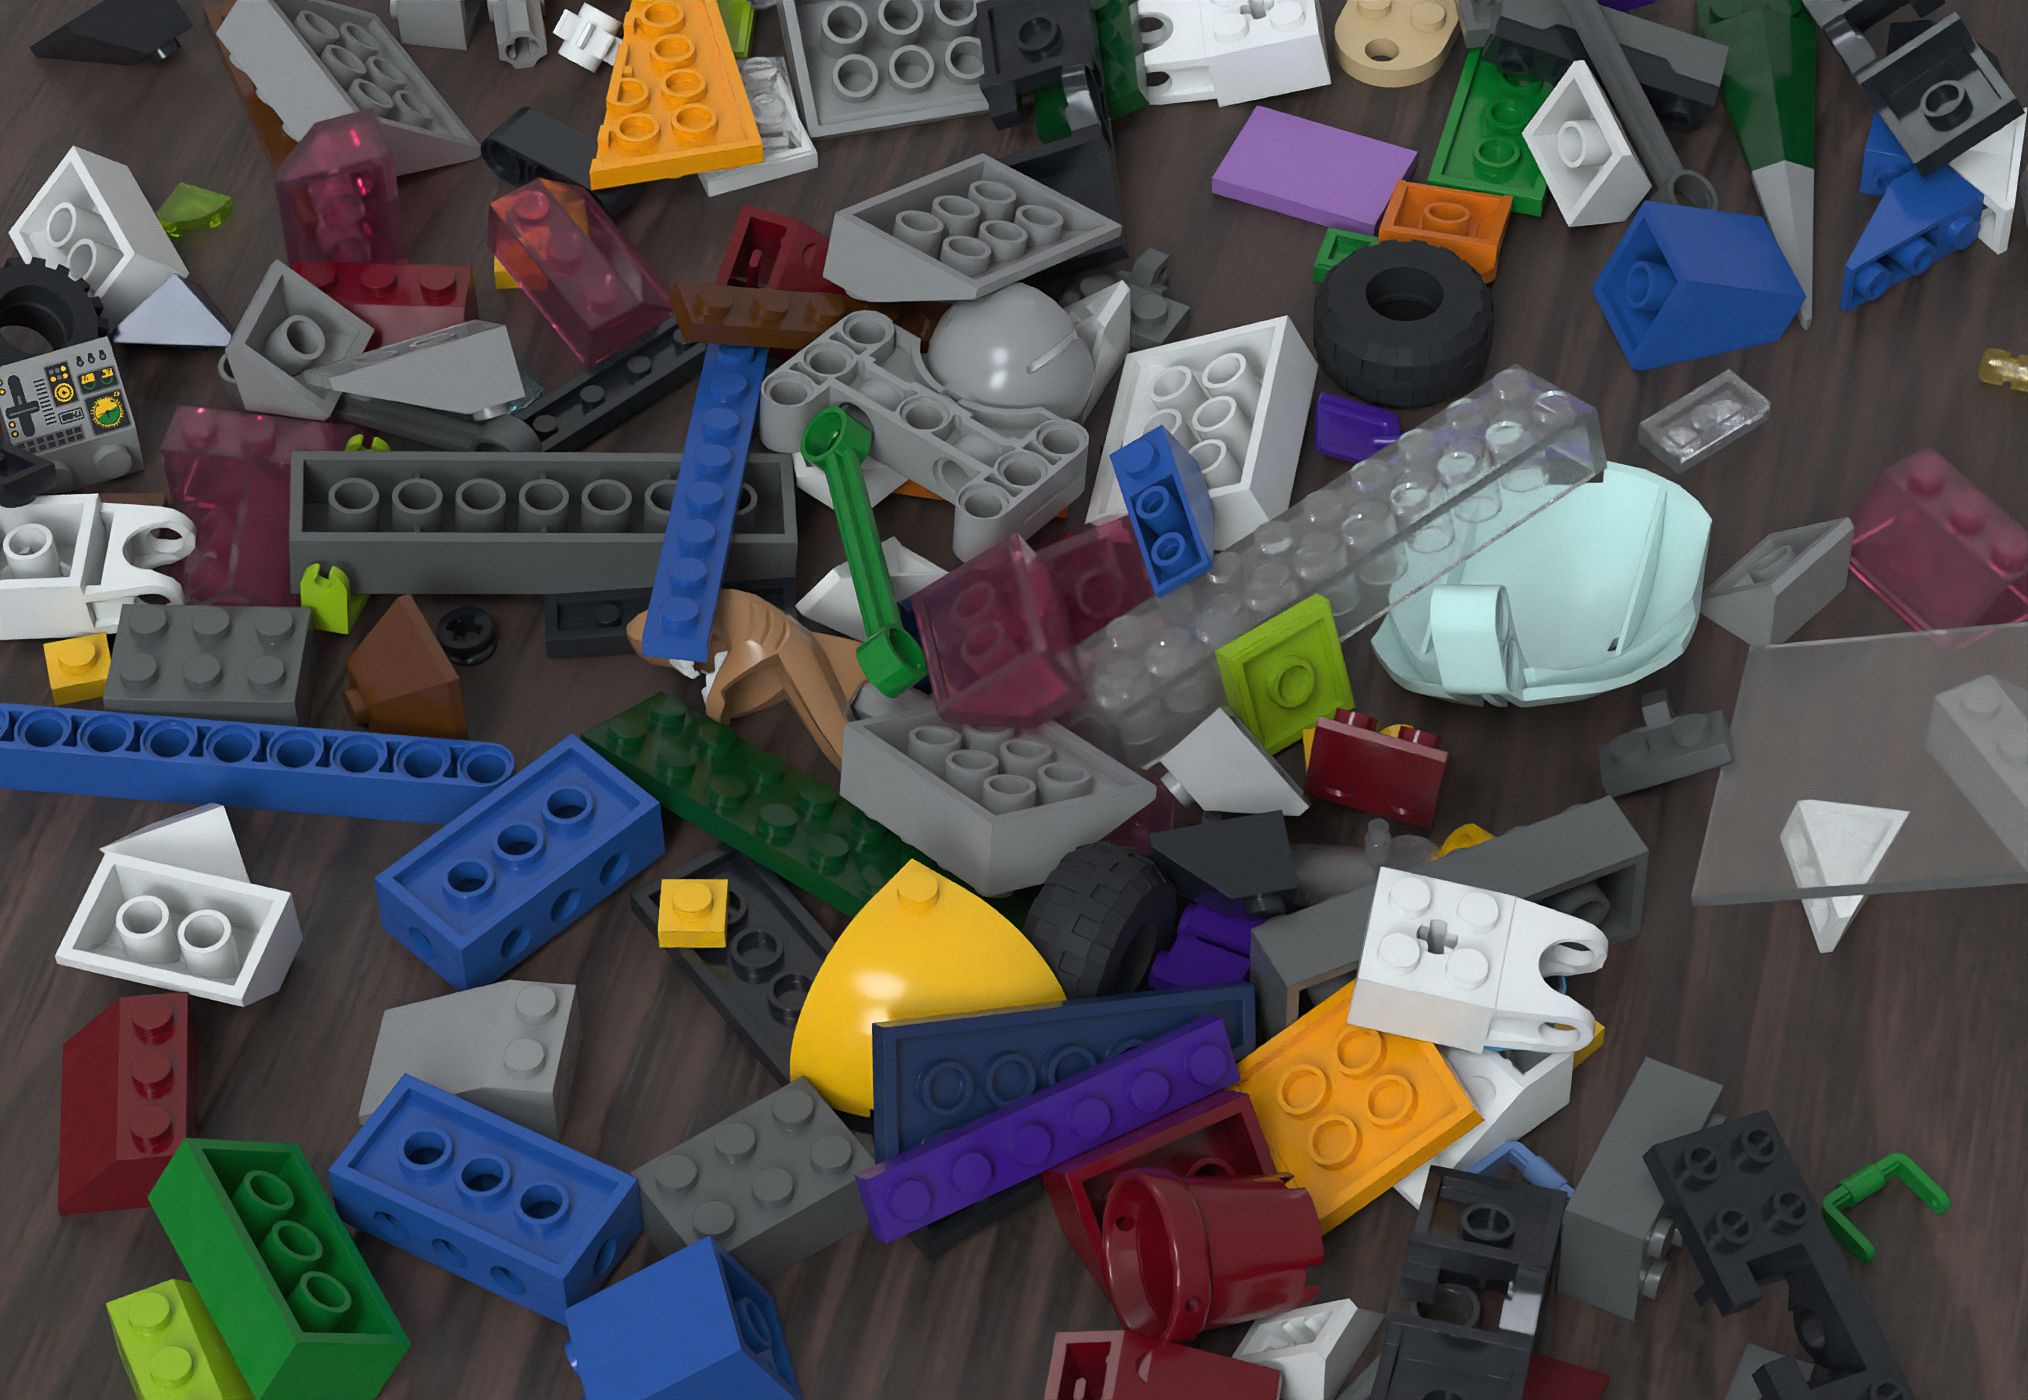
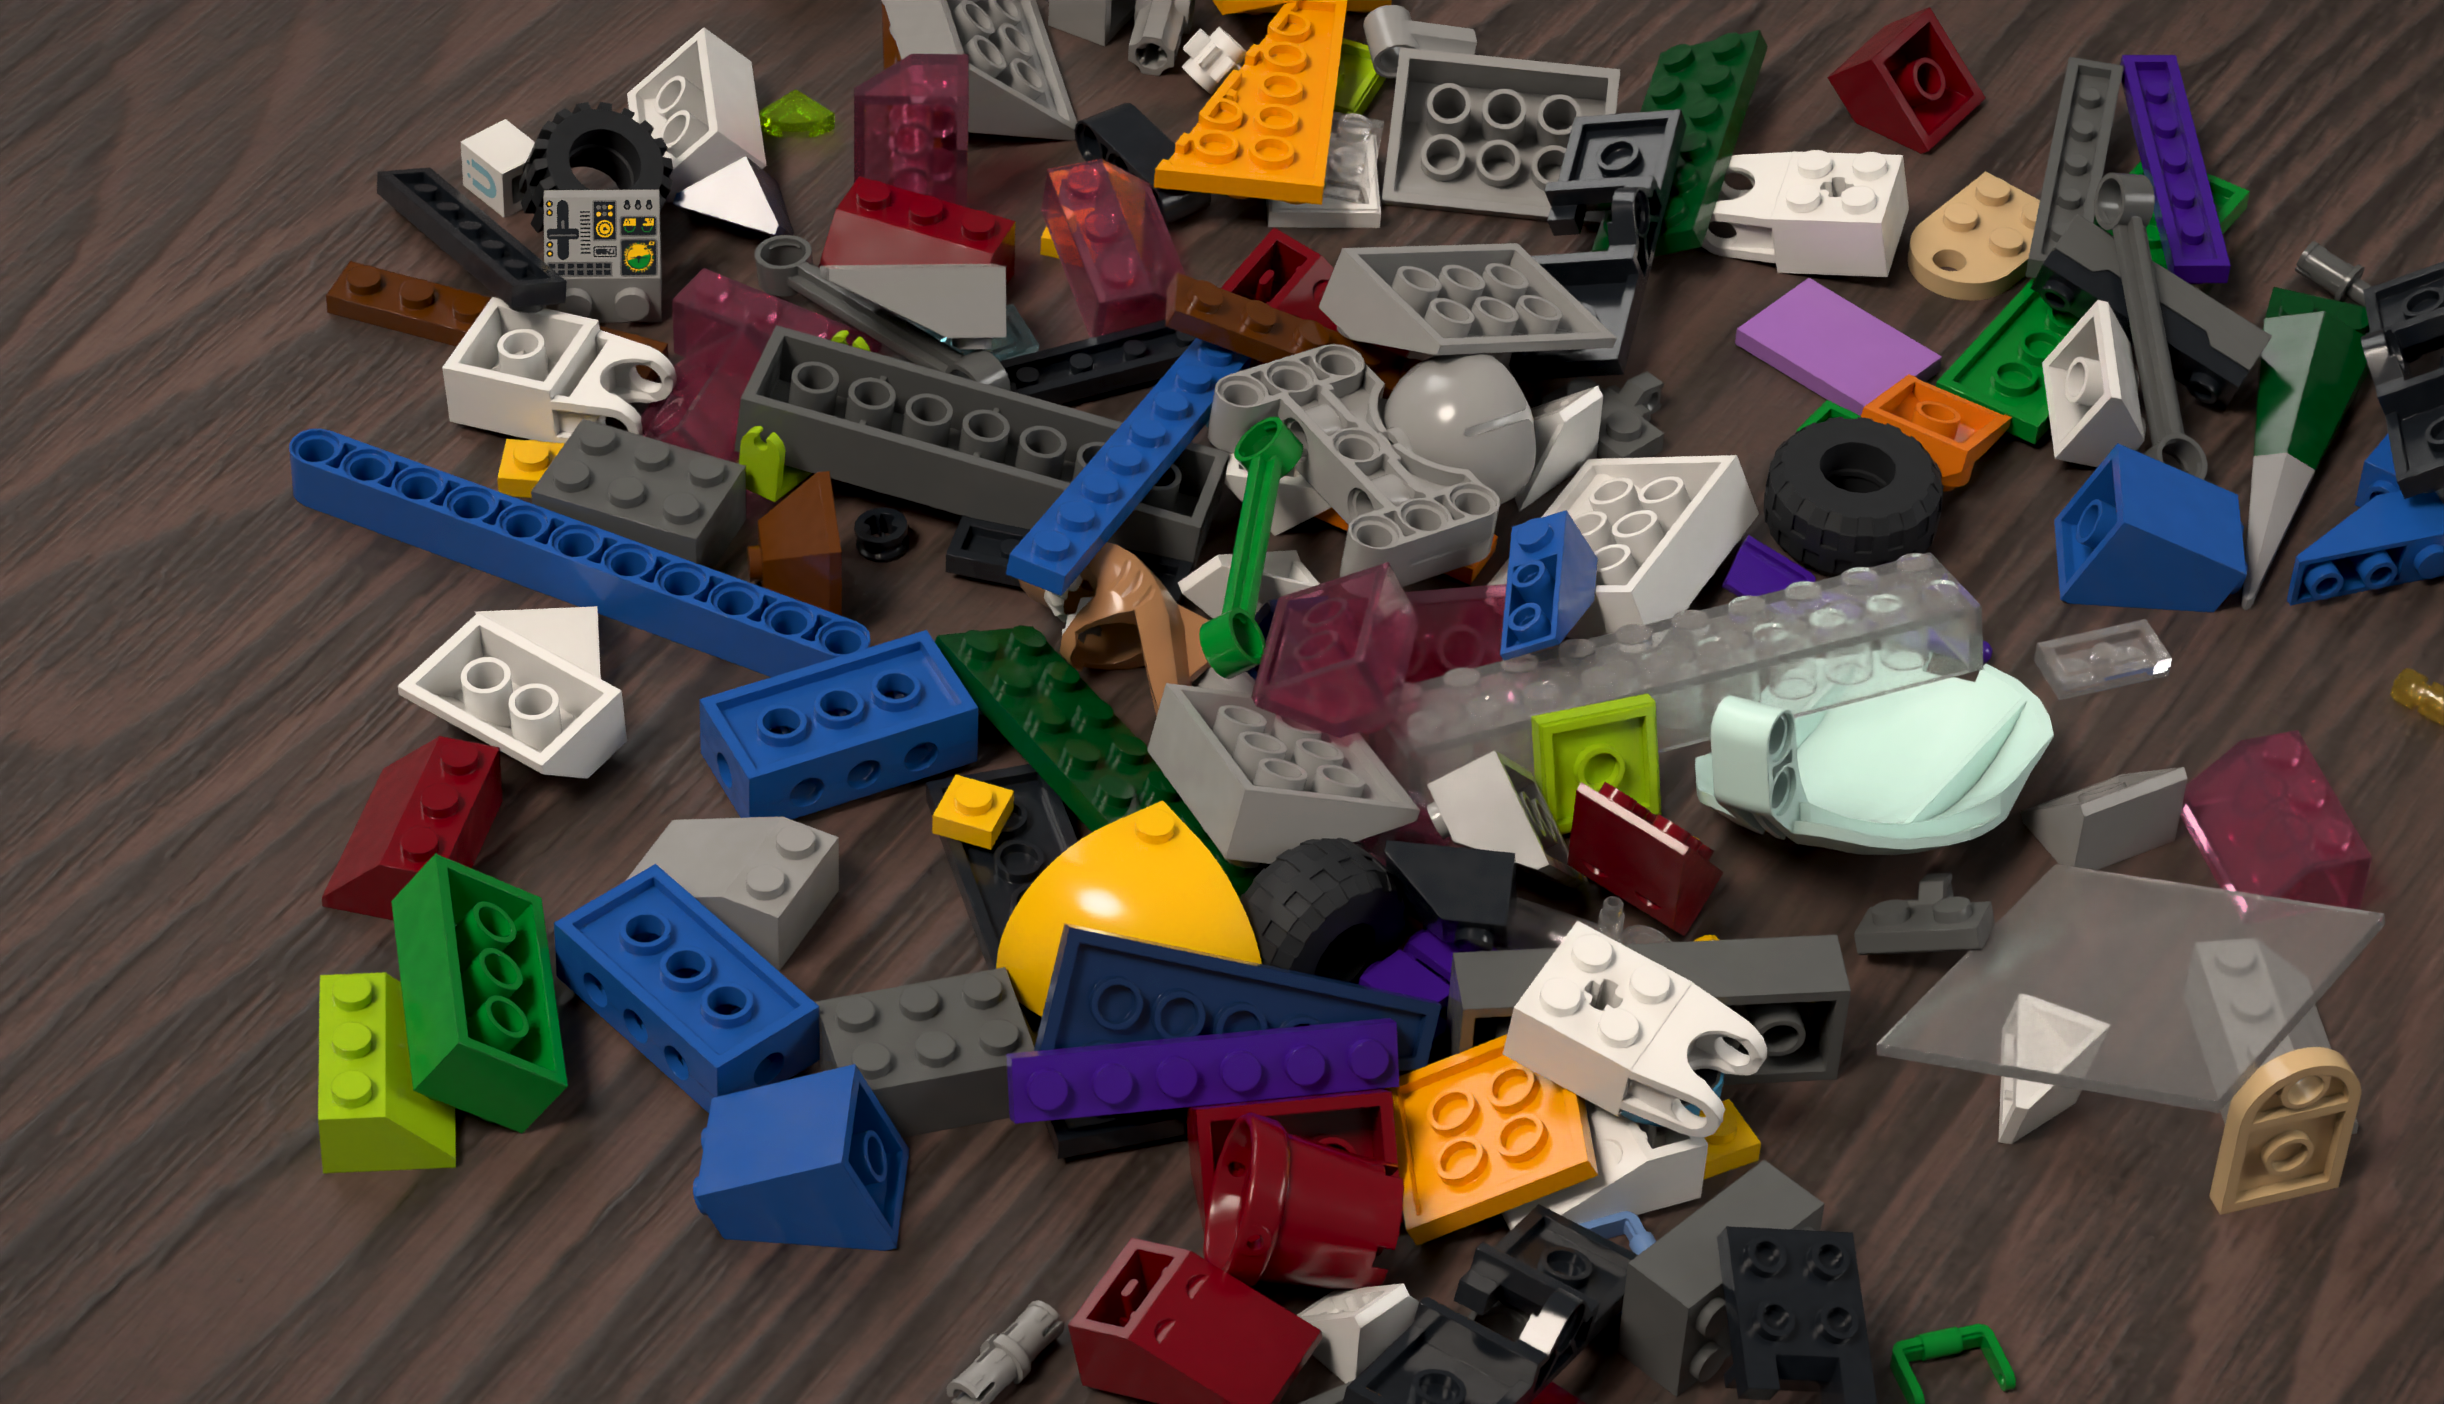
camera: 15 degrees right, 5 degrees down
(285, 333) = (815, 228): light grey slope -> none

